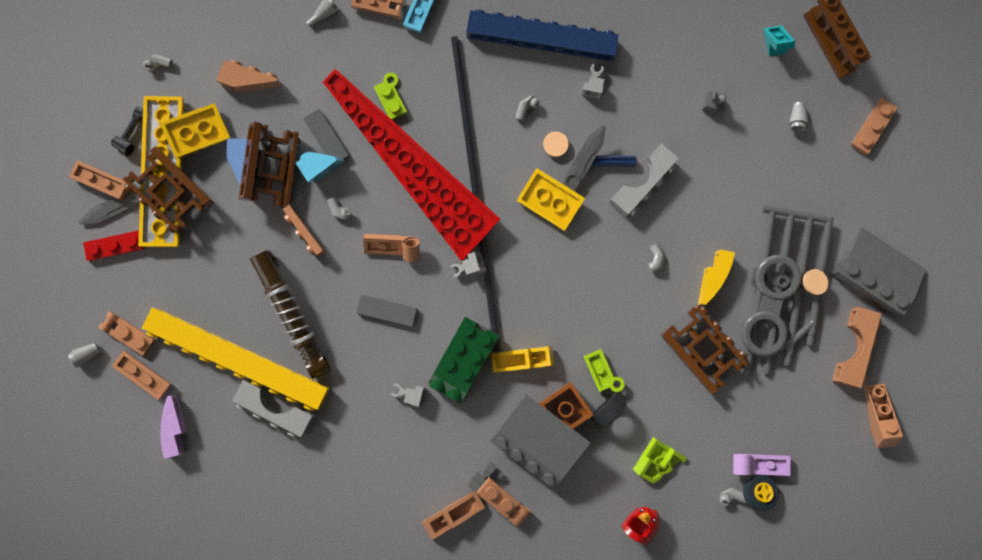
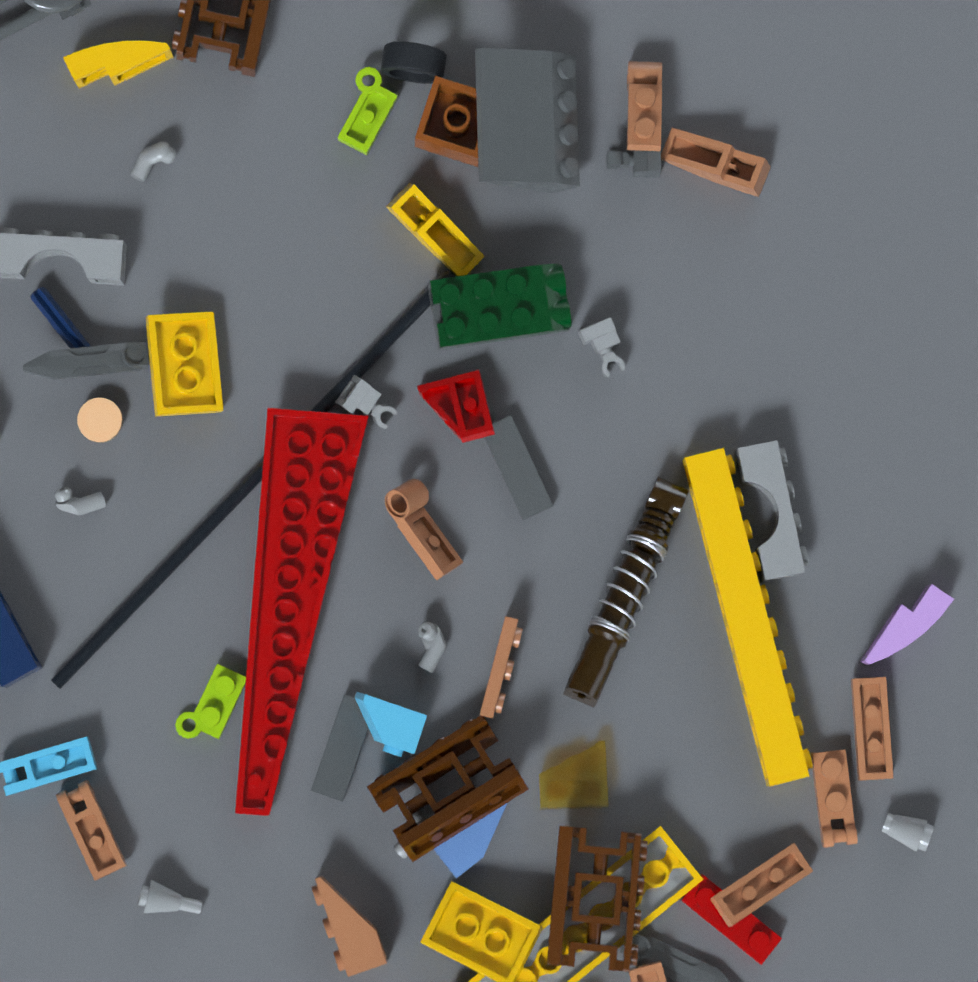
camera: 130 degrees left, 0 degrees up
(114, 269) = (761, 885): none -> nougat plate
(227, 225) = (576, 781): none -> clear yellow wing
(433, 307) = (460, 404): none -> red wing

